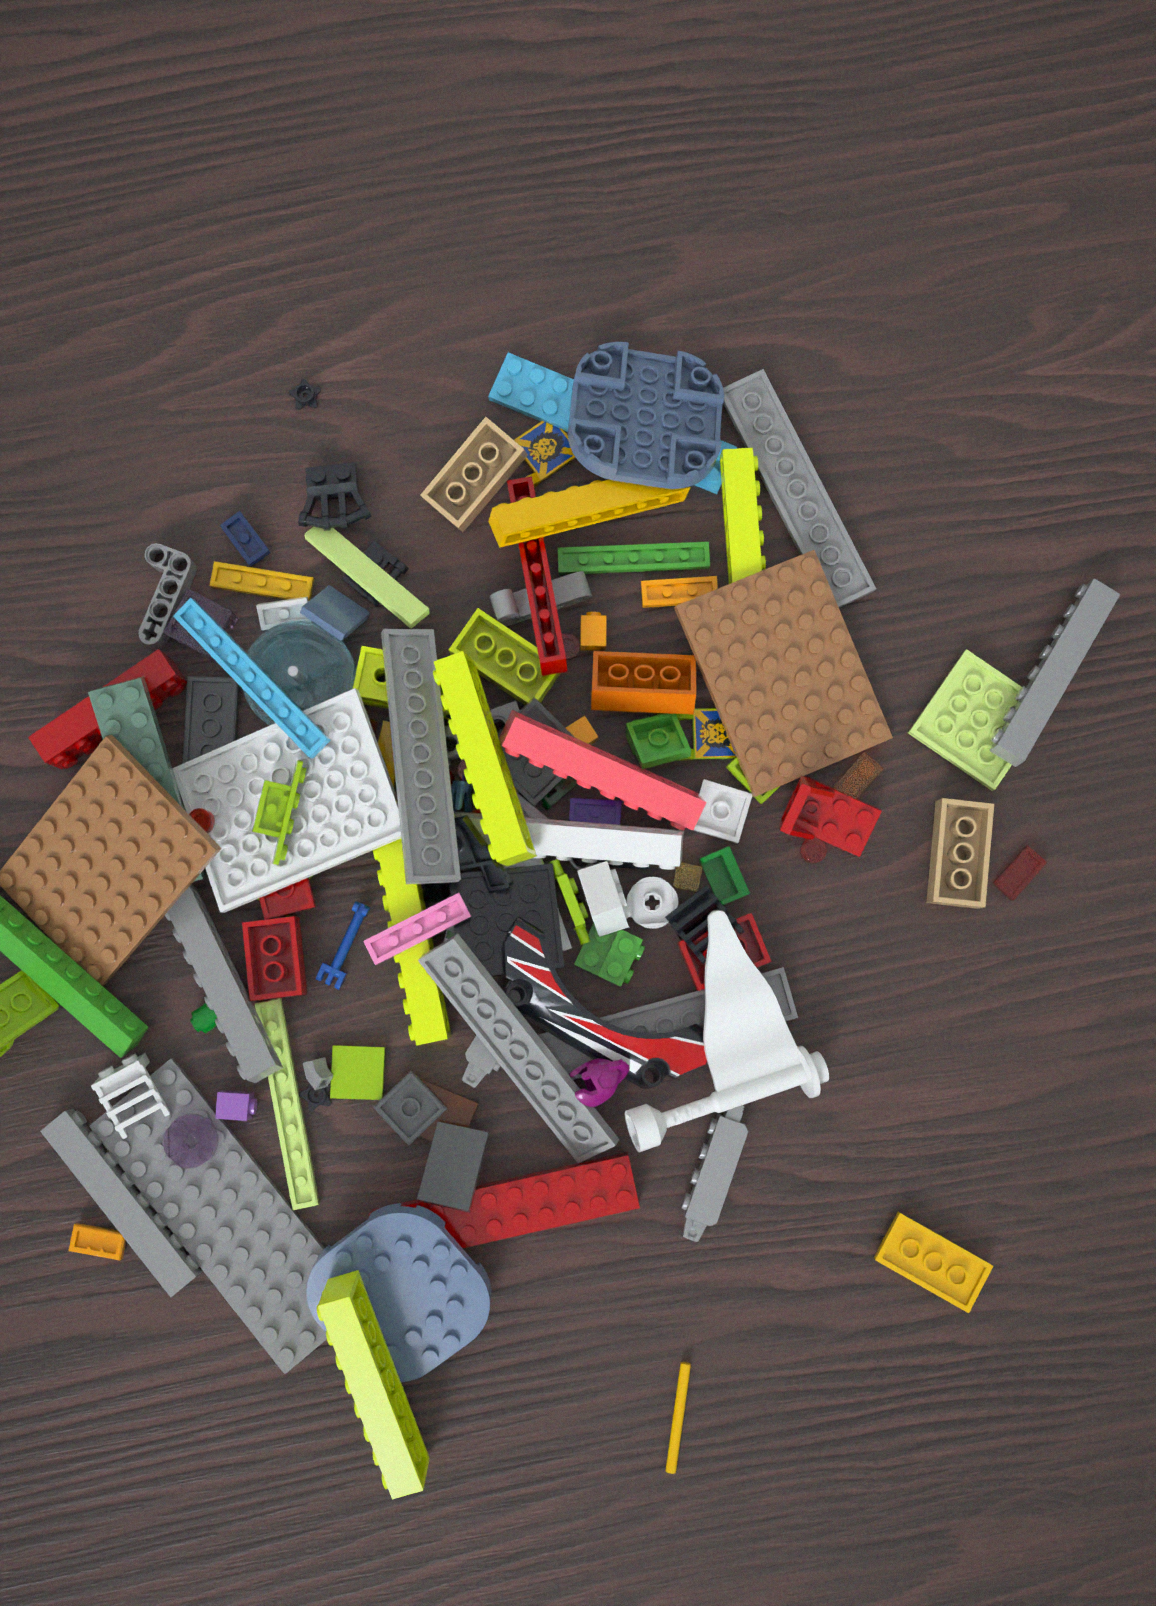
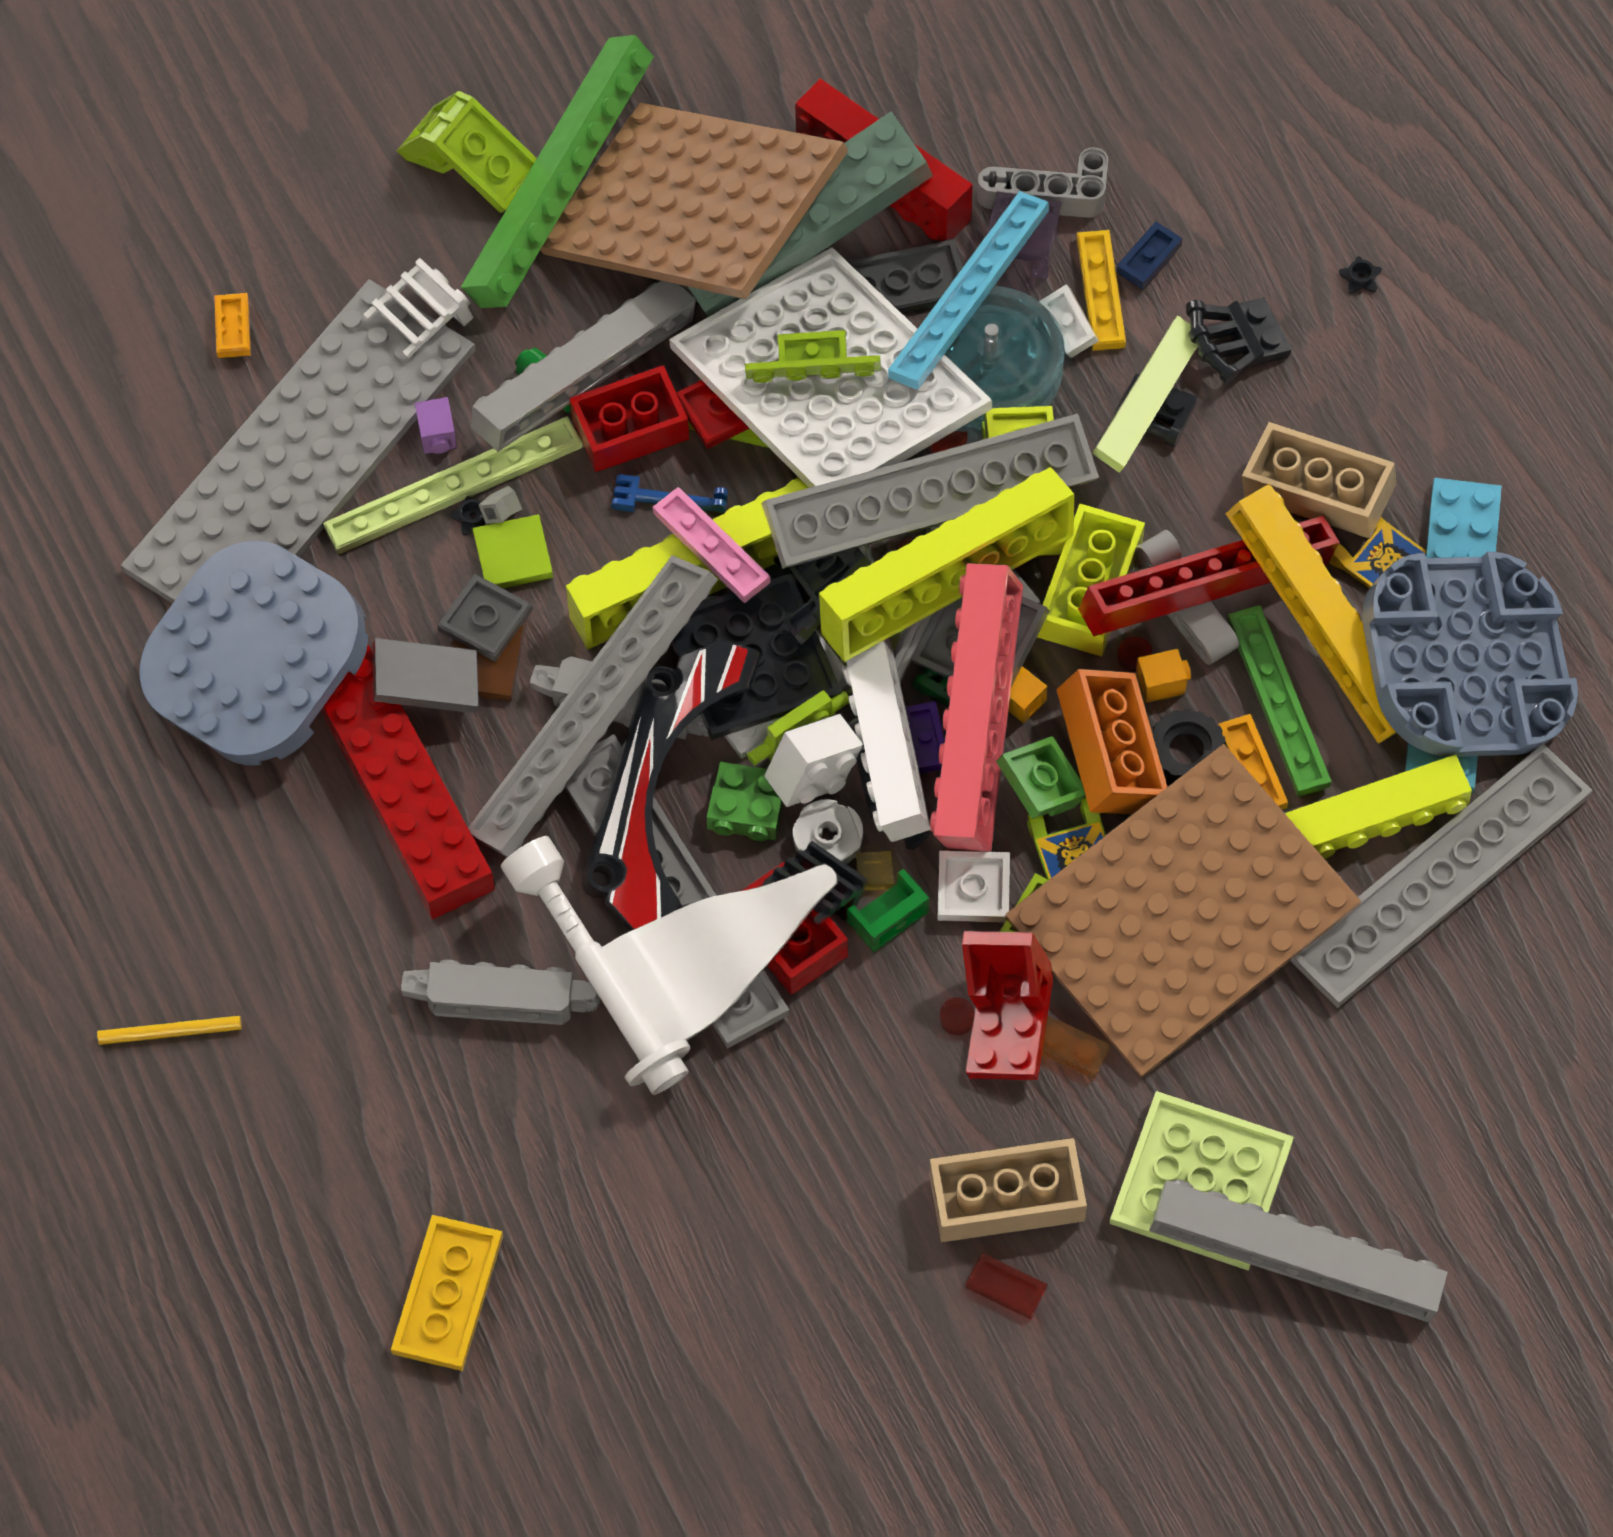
camera: 75 degrees right, 20 degrees down
(121, 1201) = (286, 336): light grey brick -> none
(181, 1153) = (384, 401): clear purple plate -> none
(203, 818) = (774, 289): clear red tile -> none
(335, 612) = (1087, 372): sand blue tile -> none
(373, 1384) = (138, 643): neon yellow brick -> none
(601, 1080) = (581, 815): magenta helmet -> none
(654, 613) = (1184, 723): none -> black tyre

